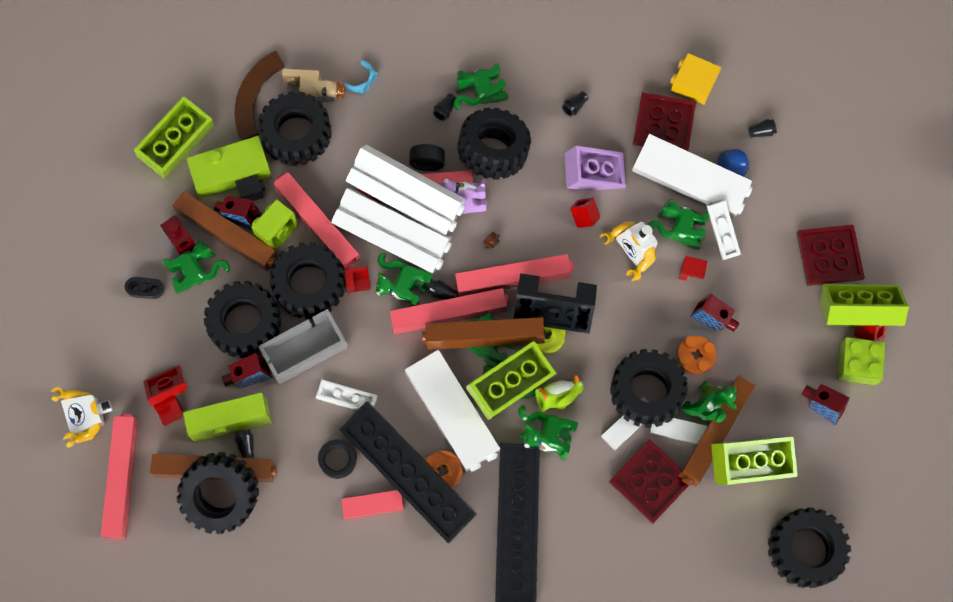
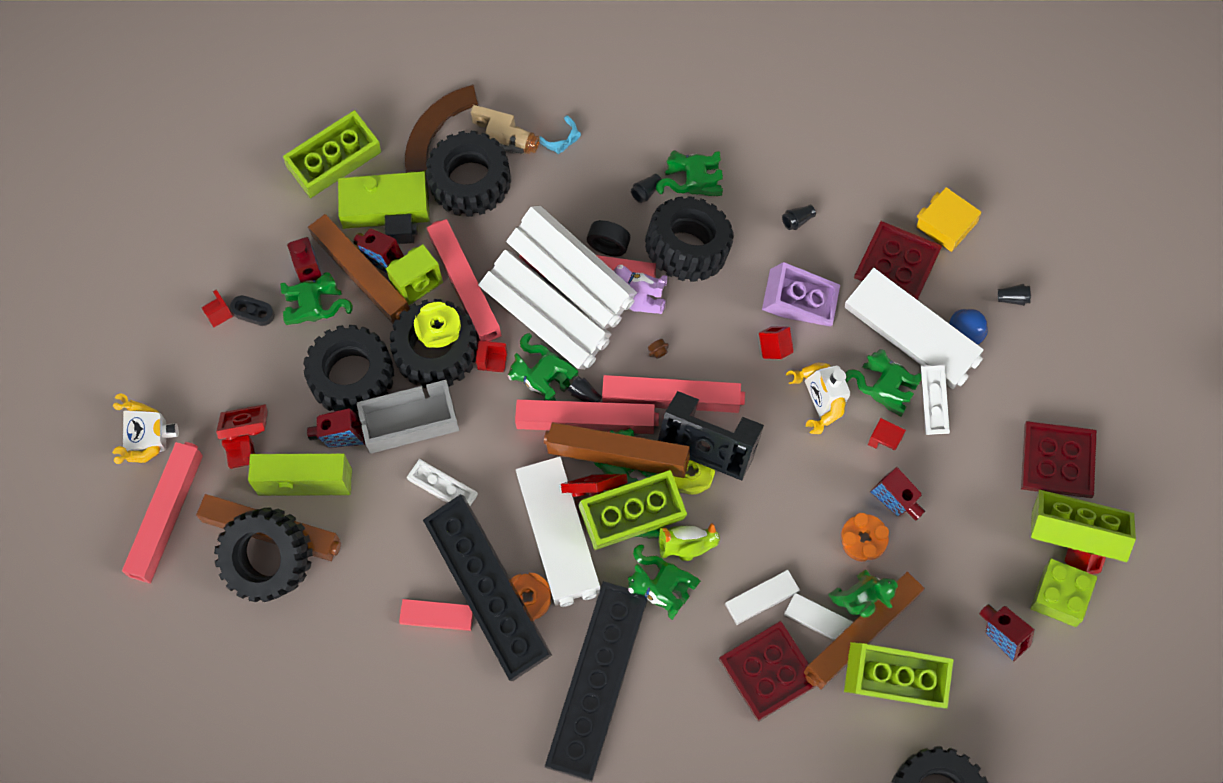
camera: 20 degrees right, 5 degrees down
(114, 295) = (217, 310): none -> red panel
(244, 442) = (312, 508): black cone -> none
(308, 276) = (437, 337): none -> neon yellow plate
(337, 444) = (399, 539): black tyre -> none
(473, 366) = (593, 484): none -> red plate
(651, 364) = (800, 532): black tyre -> none

